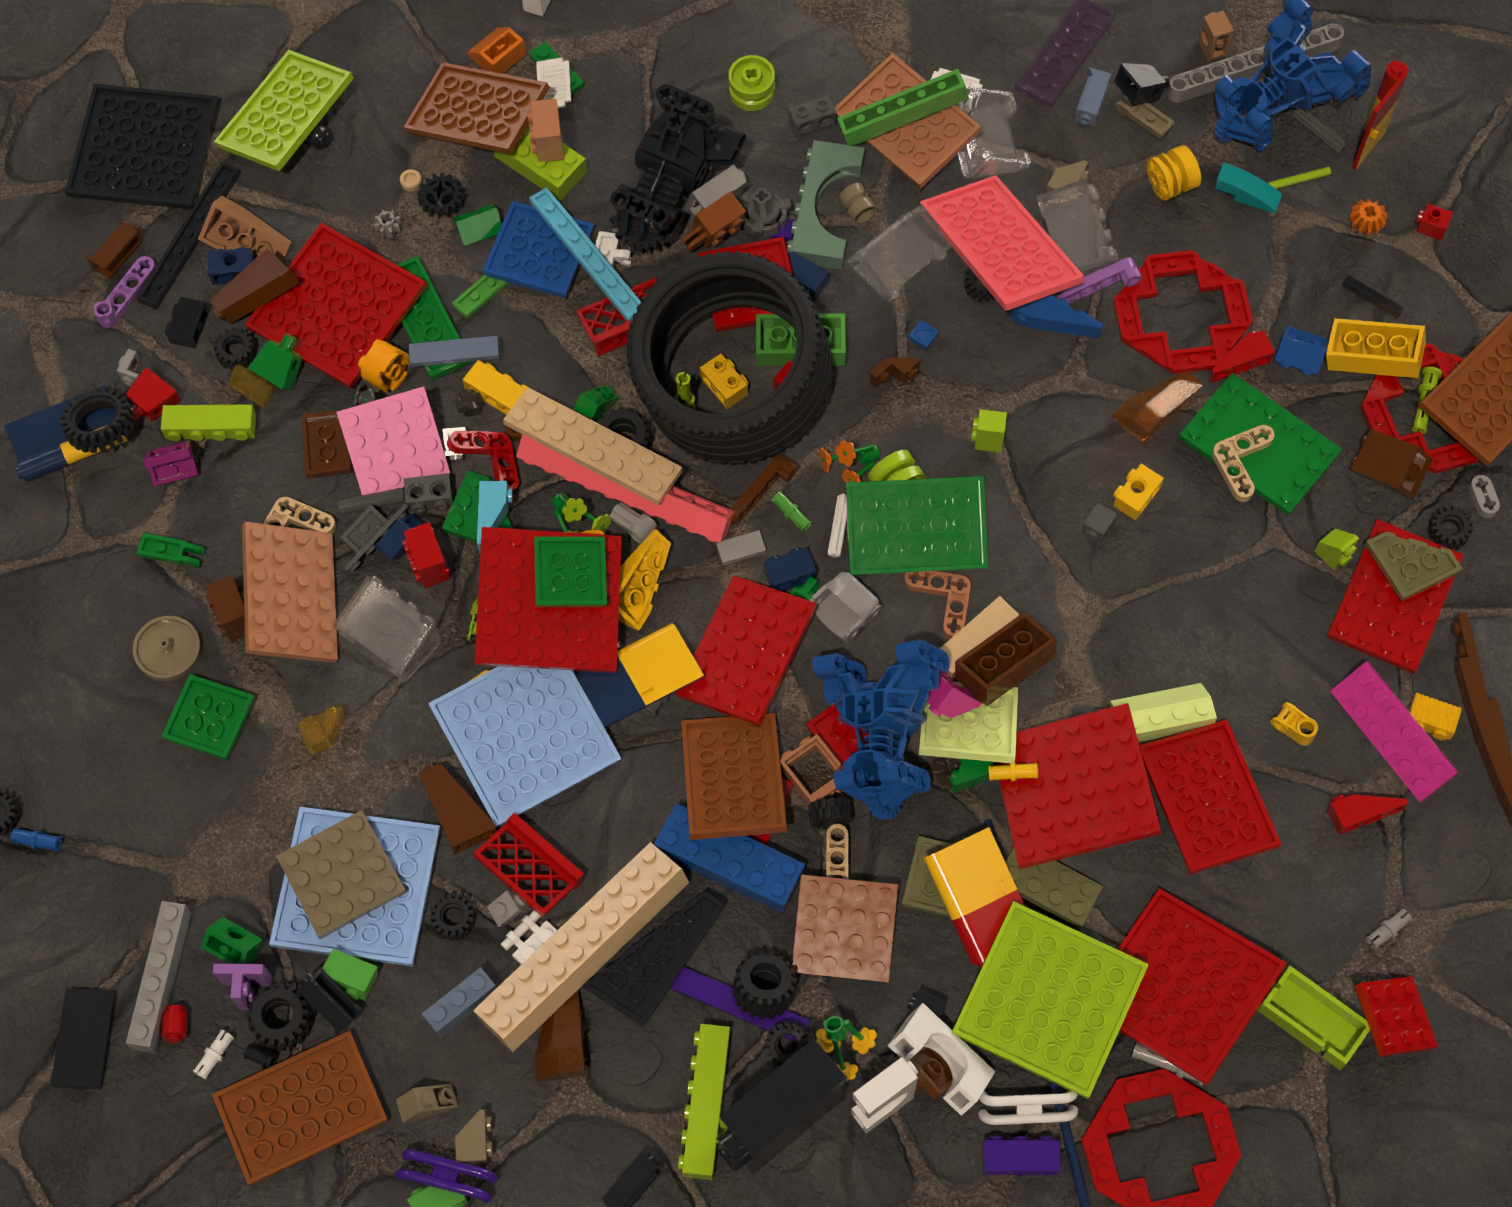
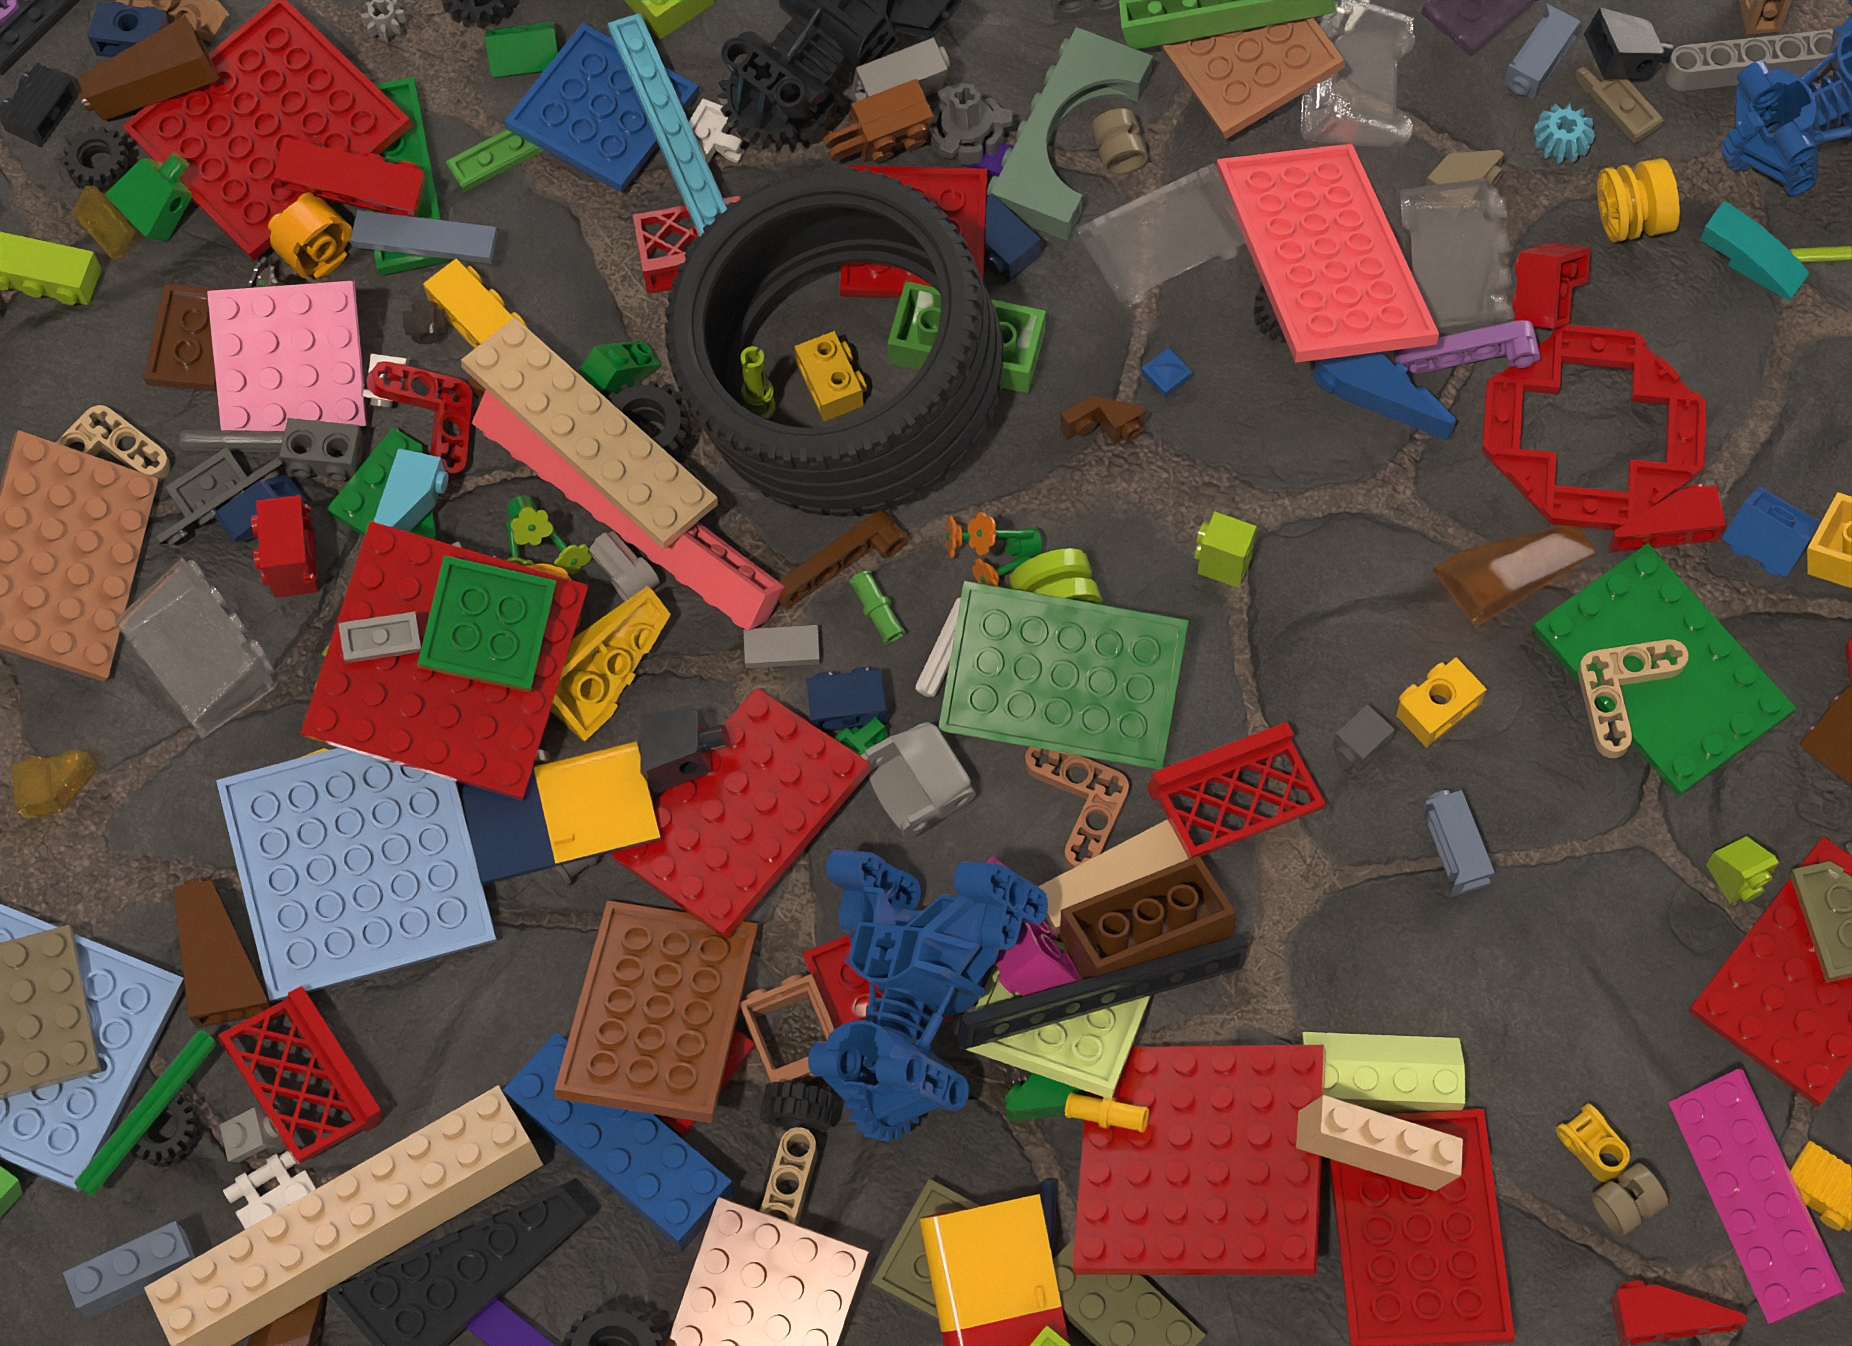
camera: 15 degrees right, 0 degrees up
(400, 325) = (348, 177): none -> red brick
(442, 909) = (145, 1113): none -> green axle
(508, 594) = (379, 637): none -> light grey plate
(699, 620) = (677, 747): none -> black torso
(991, 703) = (1101, 992): none -> black tile
(1027, 552) = (1228, 760): none -> red fence
(1118, 142) = (1564, 133): none -> medium azure gear
(1134, 231) = (1546, 282): none -> red brick
(1170, 570) = (1457, 841): none -> sand blue window
(1176, 750) = (1379, 1143): none -> tan brick
(1325, 748) = (1633, 1197): none -> dark tan wheel

